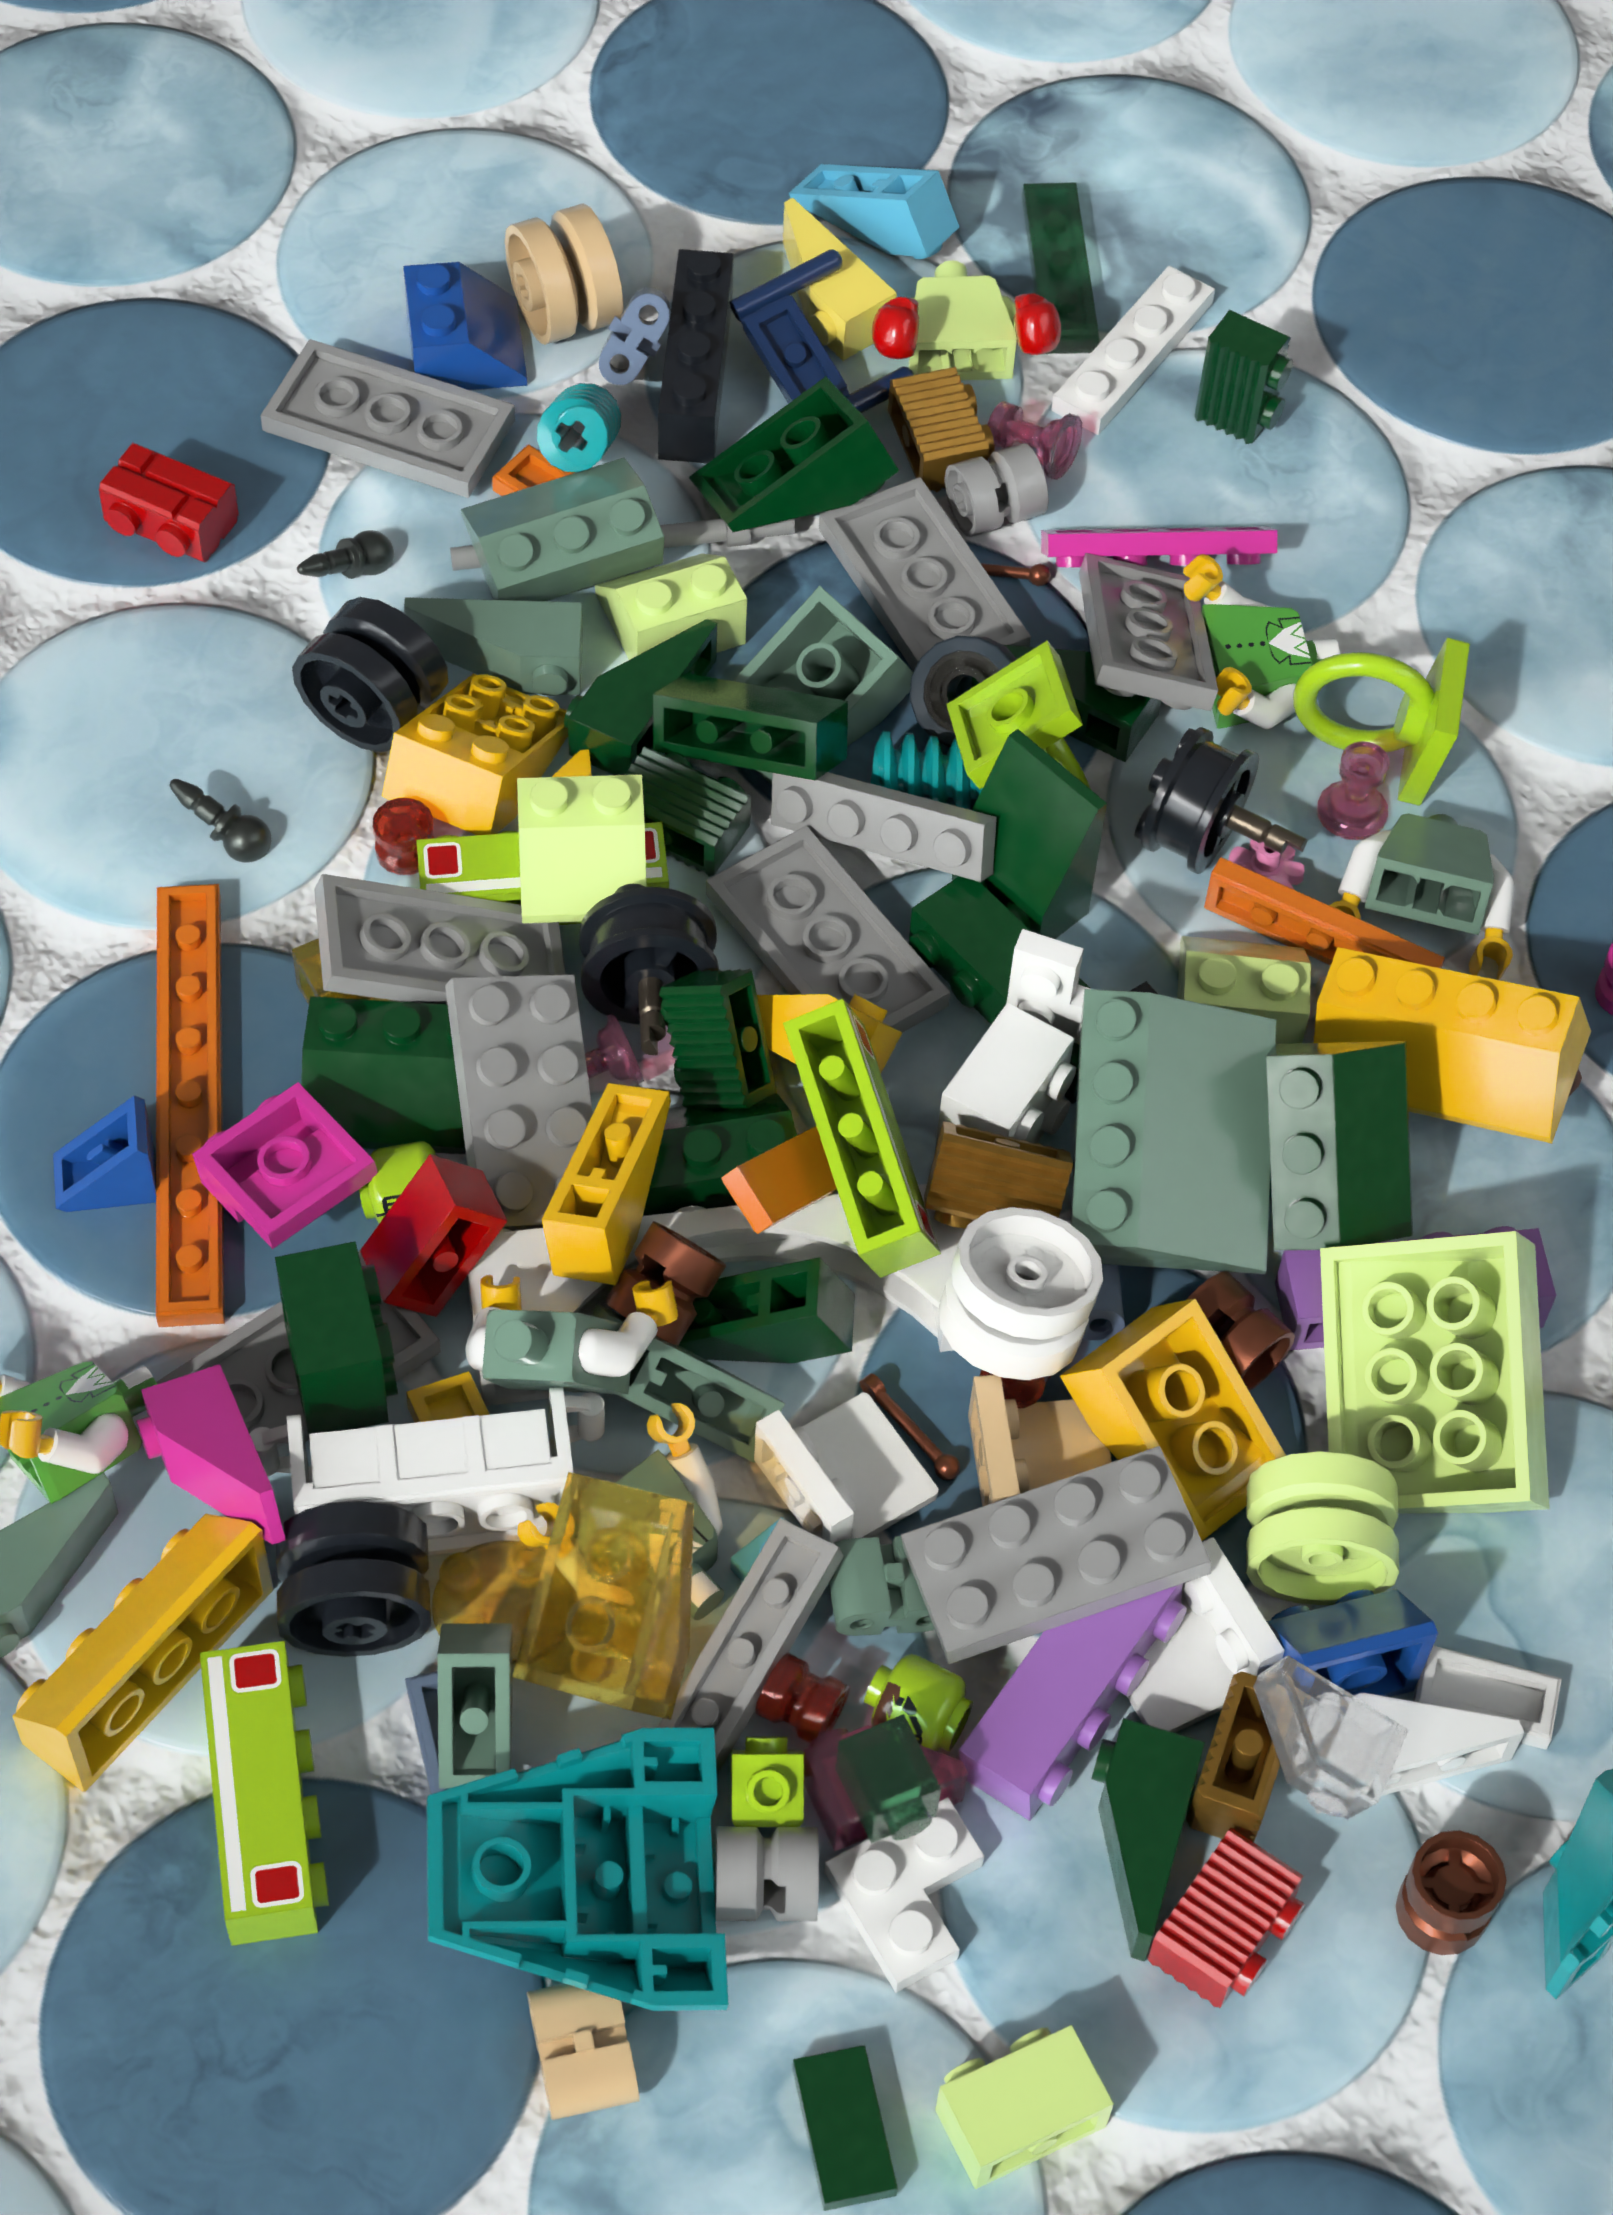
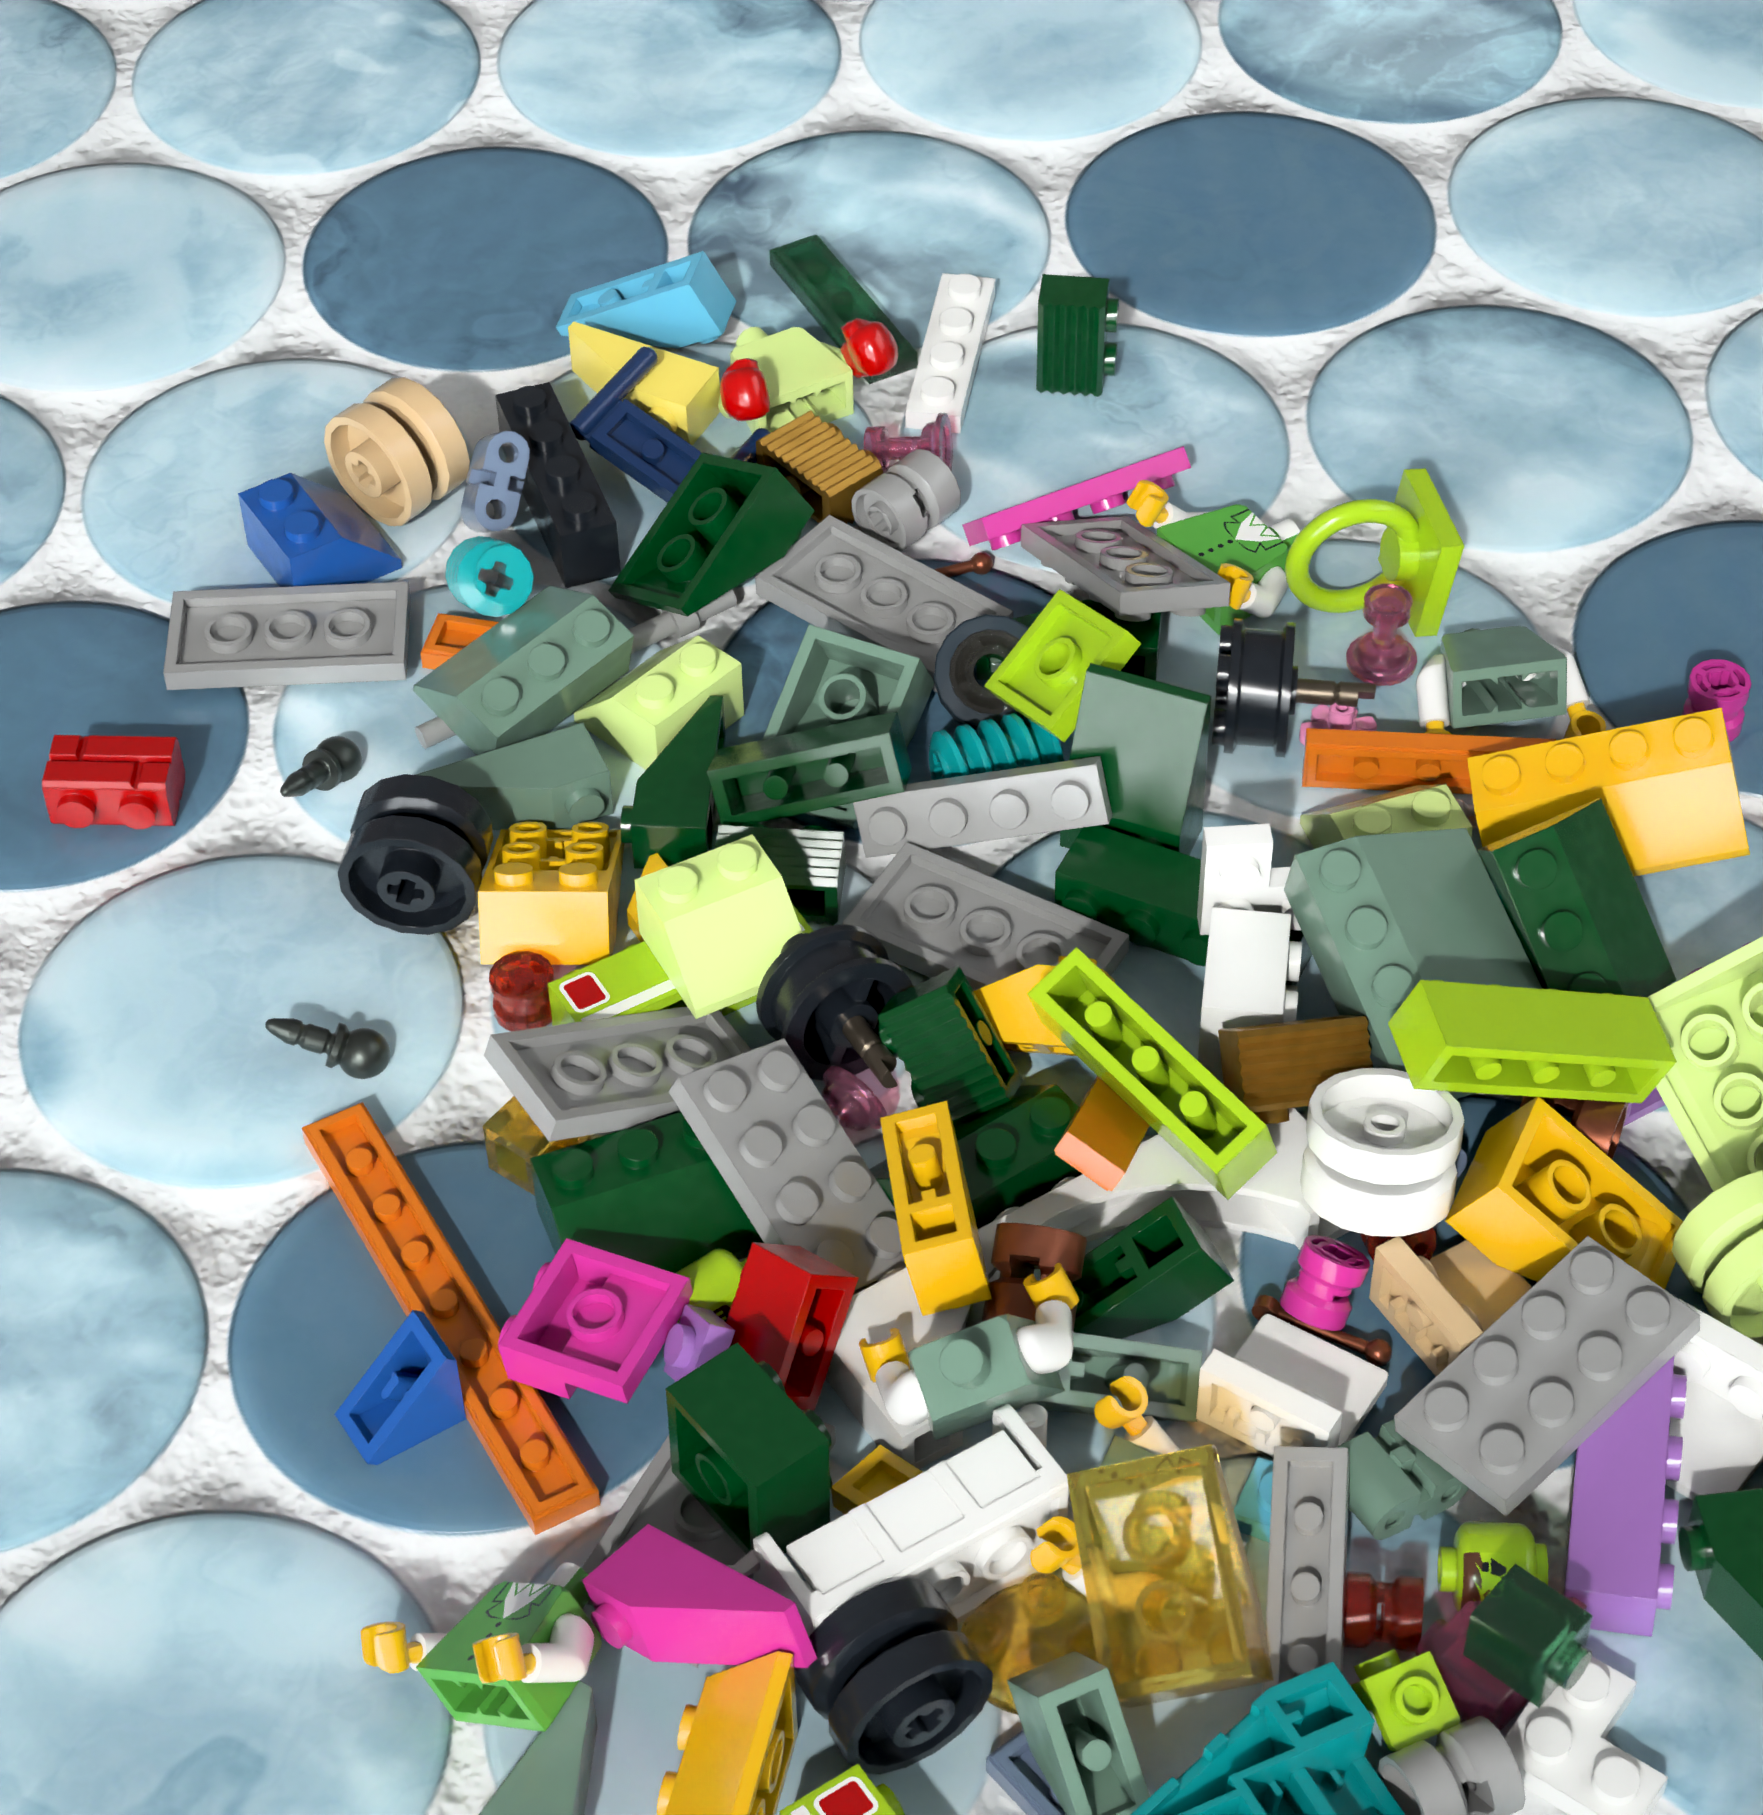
camera: 20 degrees left, 10 degrees down
(356, 1218) = (695, 1341): none -> medium lavender plate
(931, 1380) = (1324, 1282): none -> dark pink wheel
(1206, 1248) = (1530, 1042): none -> lime brick

